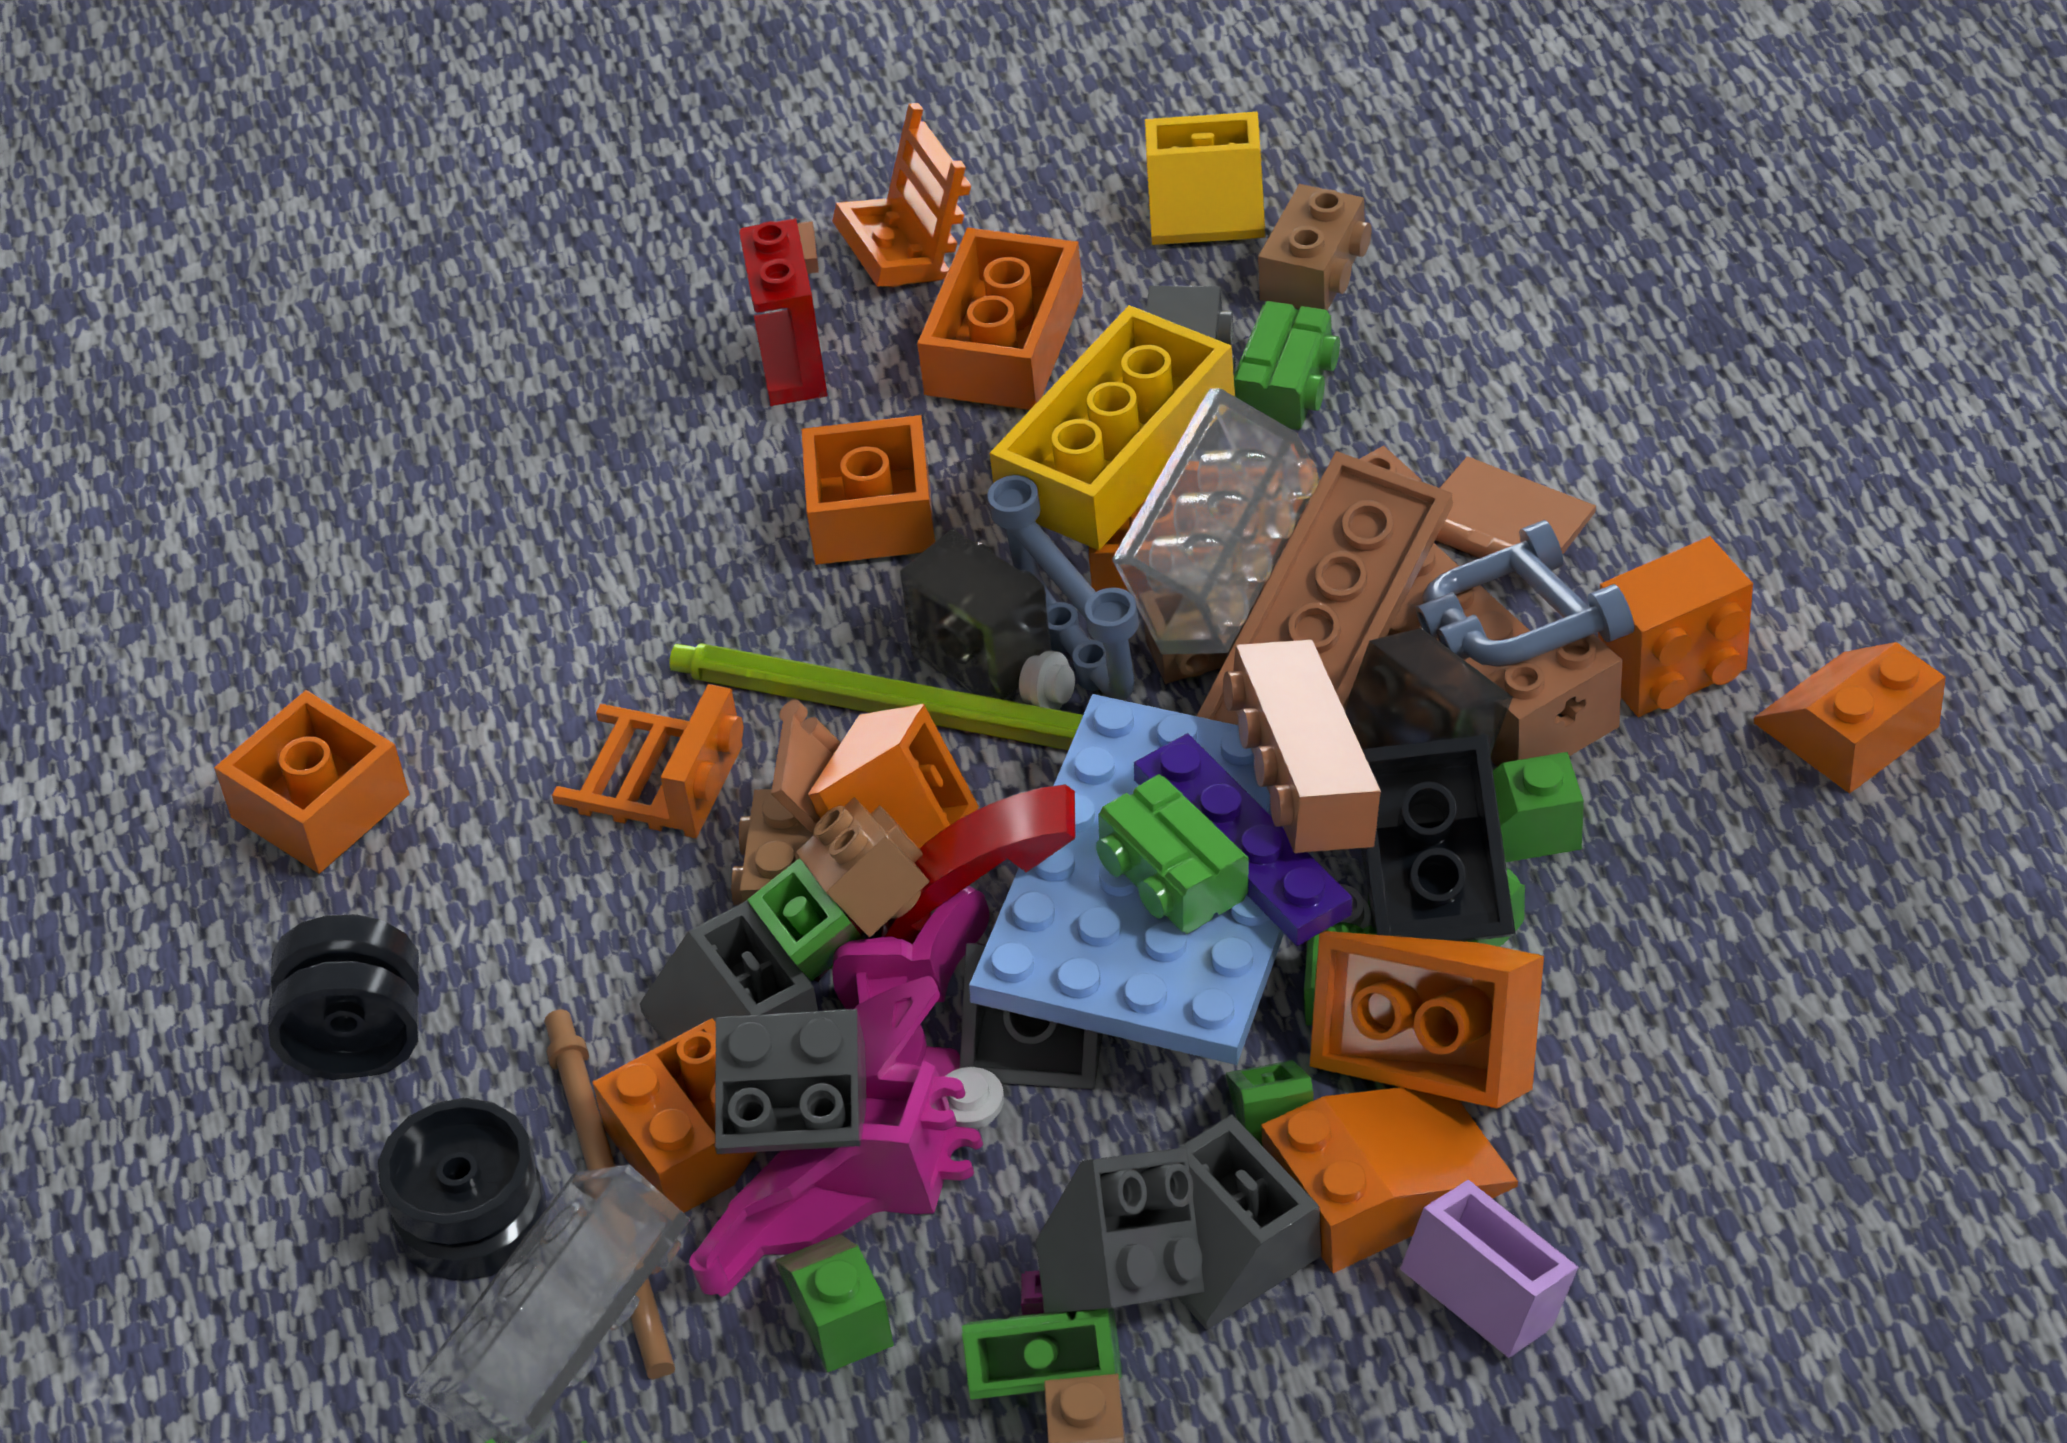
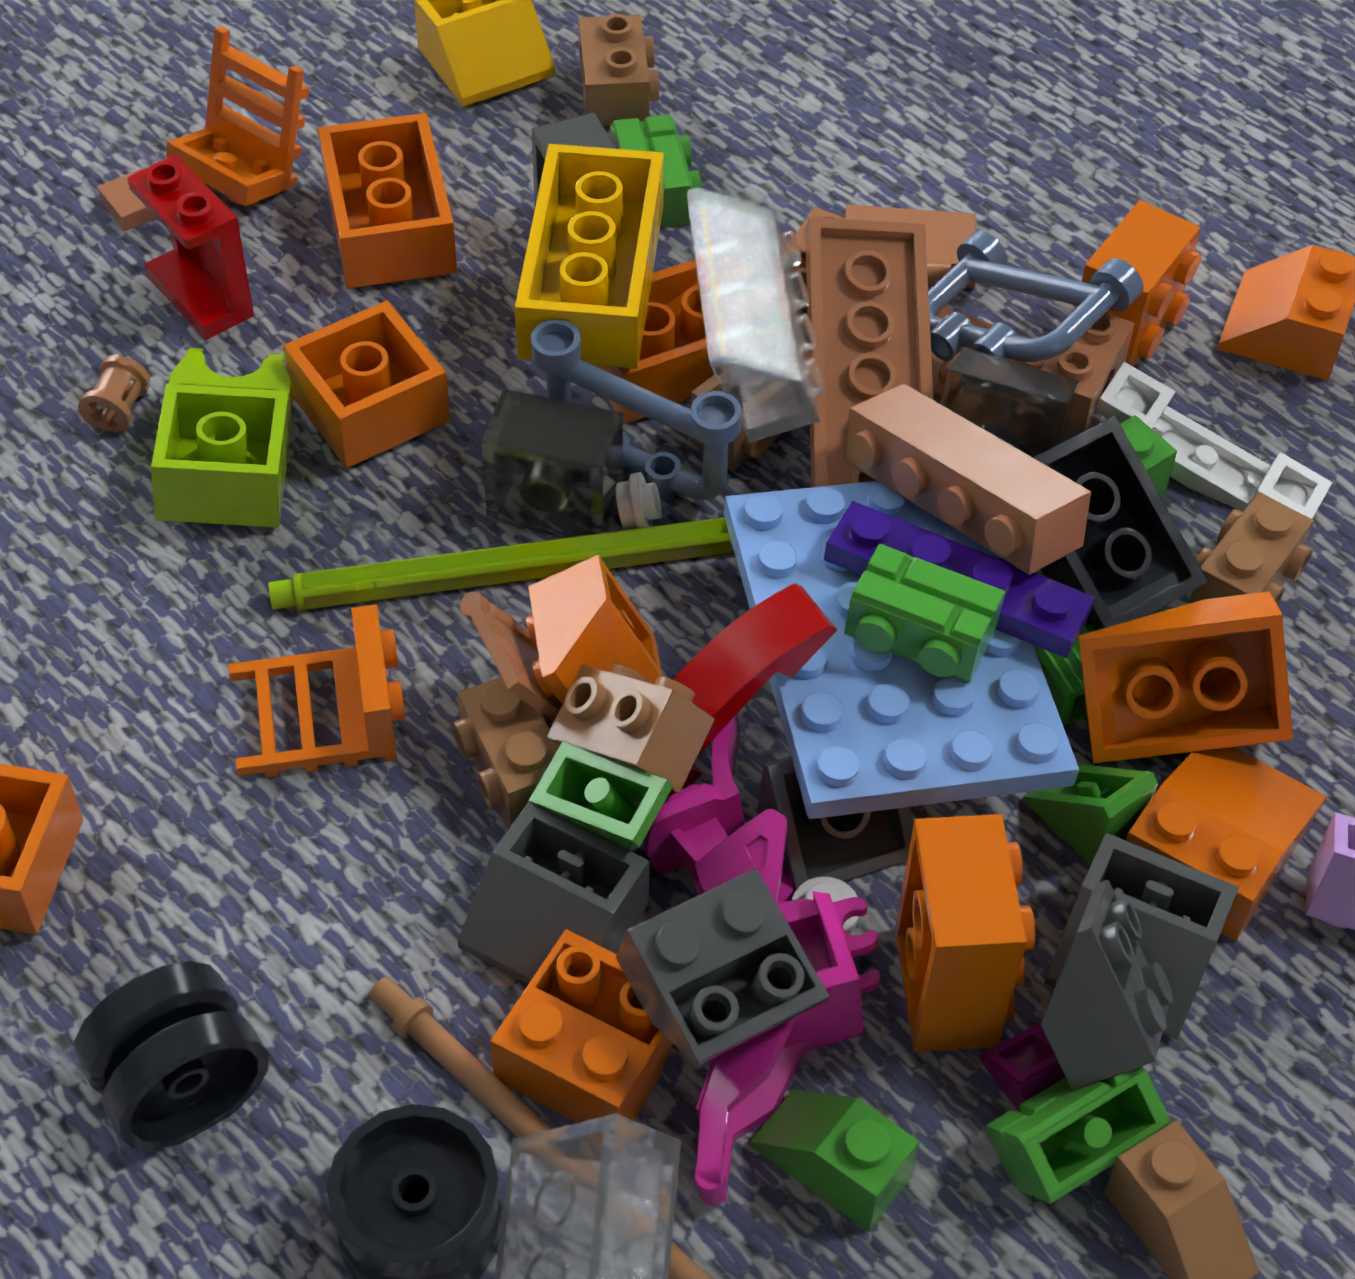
camera: 35 degrees left, 5 degrees up
(652, 430) = (114, 394): none -> nougat bush
(710, 504) = (223, 444): none -> lime brick
(1024, 1136) = (961, 932): none -> orange brick
(1596, 937) = (1256, 551): none -> medium nougat brick
(1638, 821) = (1204, 458): none -> white slope

